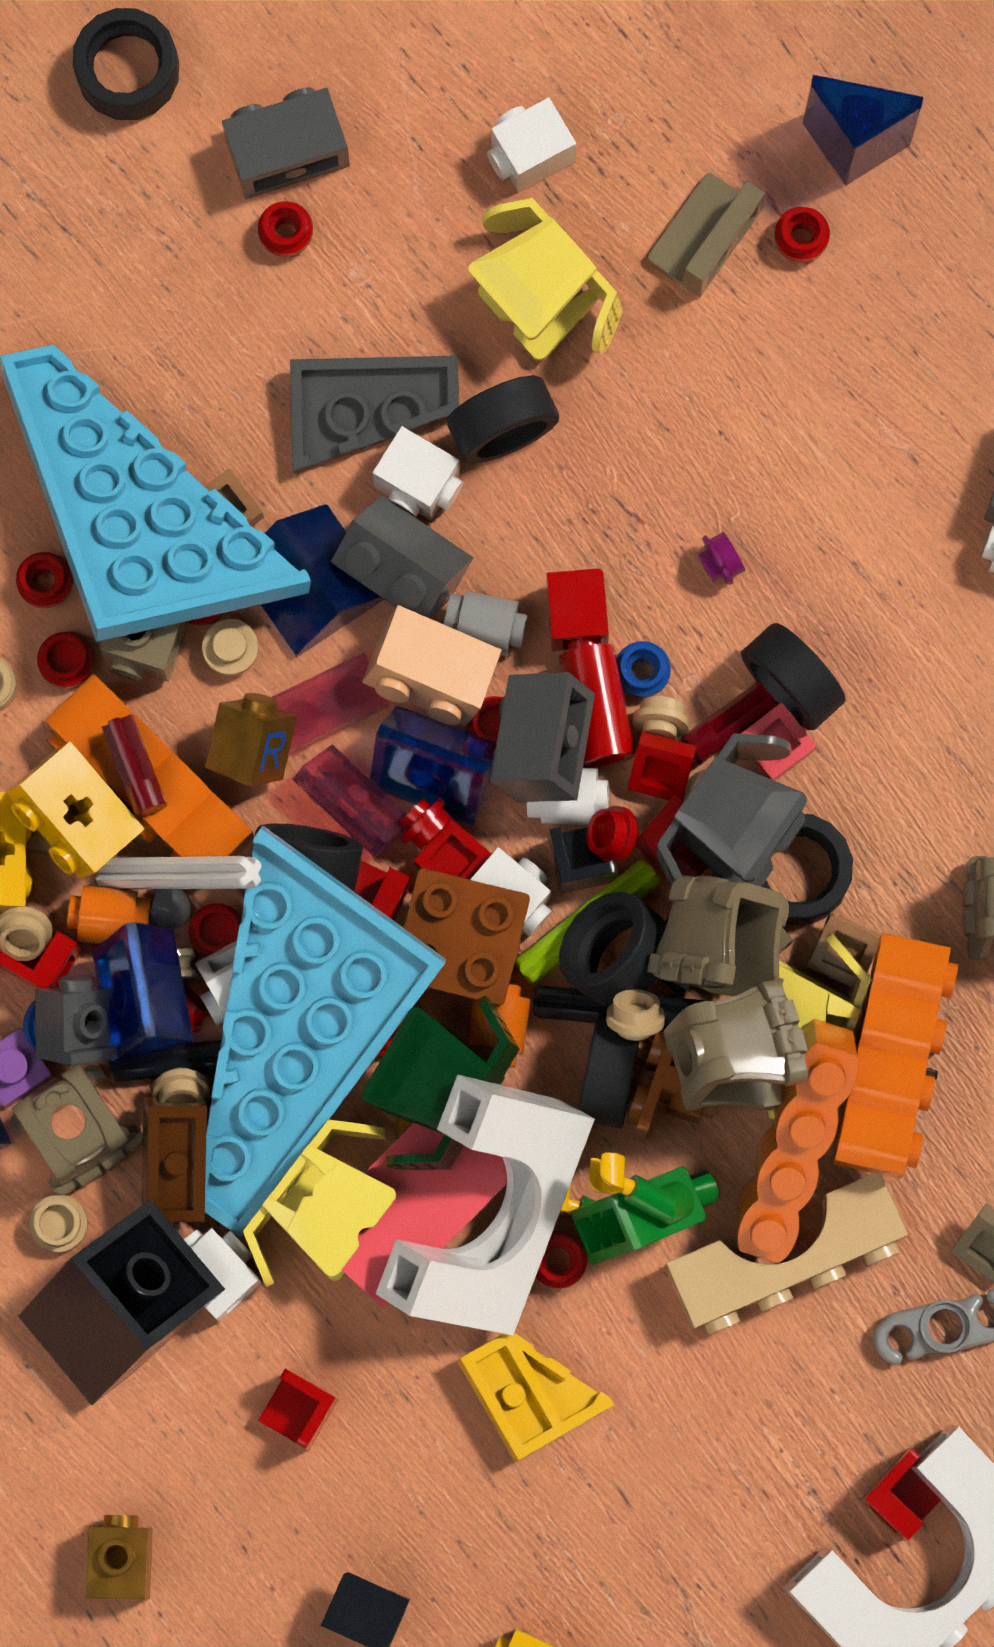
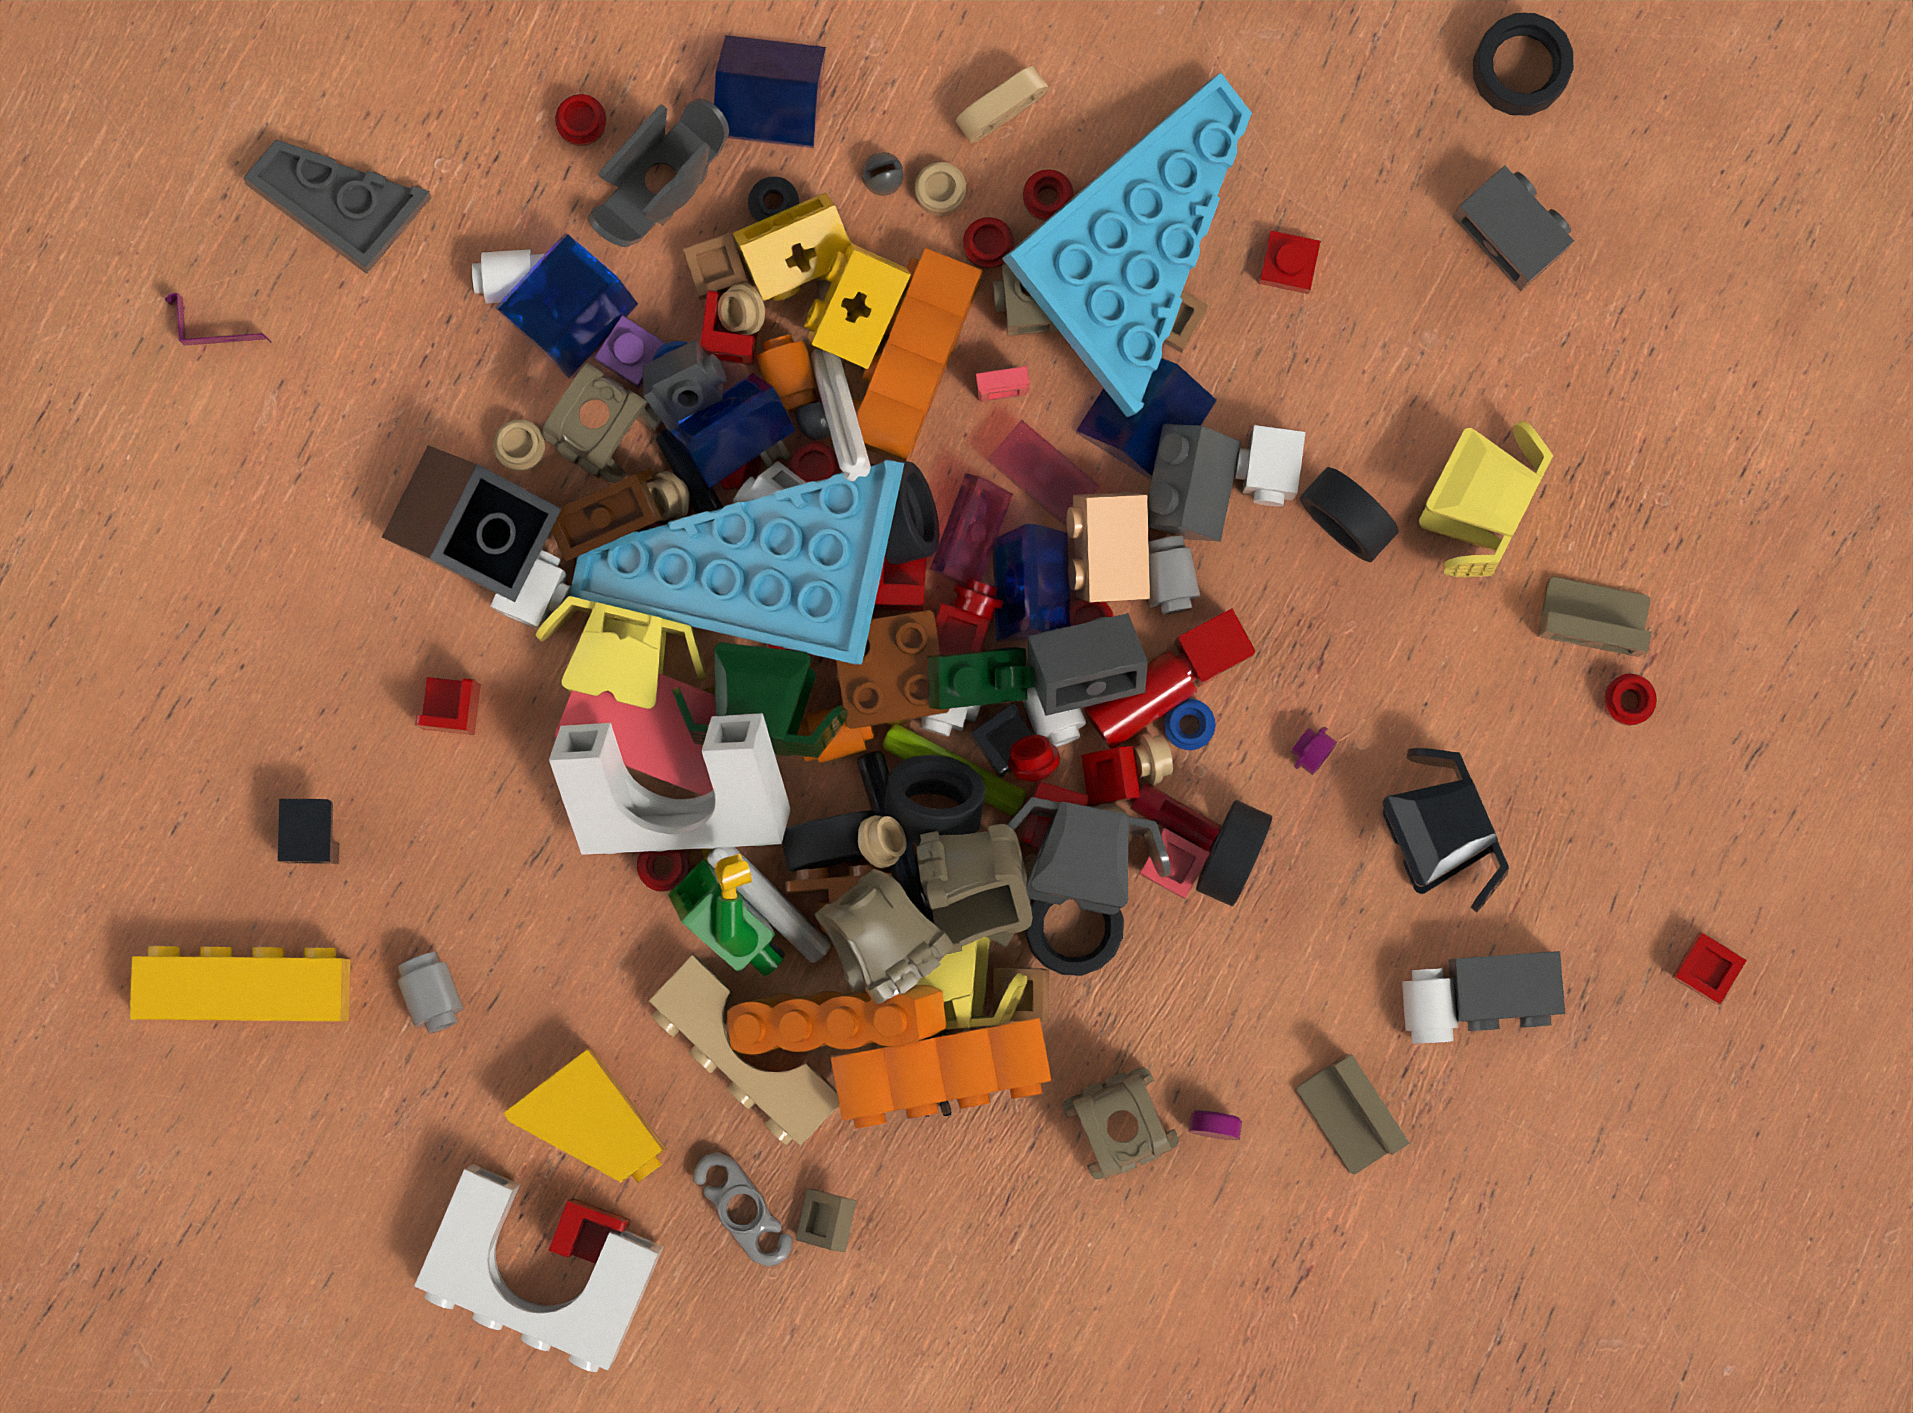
camera: 65 degrees right, 5 degrees up
(119, 1559) = (267, 614): pearl gold brick -> none
(134, 766) = (915, 337): dark red piece -> none
(219, 689) = (1002, 383): none -> coral tile
(220, 373) = (1289, 262): none -> red plate
(230, 647) = (1057, 373): tan plate -> none
(251, 740) = (982, 424): pearl gold brick -> none
(283, 213) = (1443, 246): red plate -> none
(364, 401) = (1317, 393): dark grey wing -> none
(509, 850) = (978, 678): none -> dark green plate
(528, 1394) = (541, 889): yellow wing -> none
(530, 144) = (1604, 434): white brick -> none
(587, 1556) = (429, 992): none -> light grey brick
(655, 1159) = (778, 910): none -> white axle
(789, 1442) = (590, 1119): none -> yellow slope
(854, 462) = (1443, 827): none -> black piece
(859, 124) = (1745, 707): clear blue slope -> none

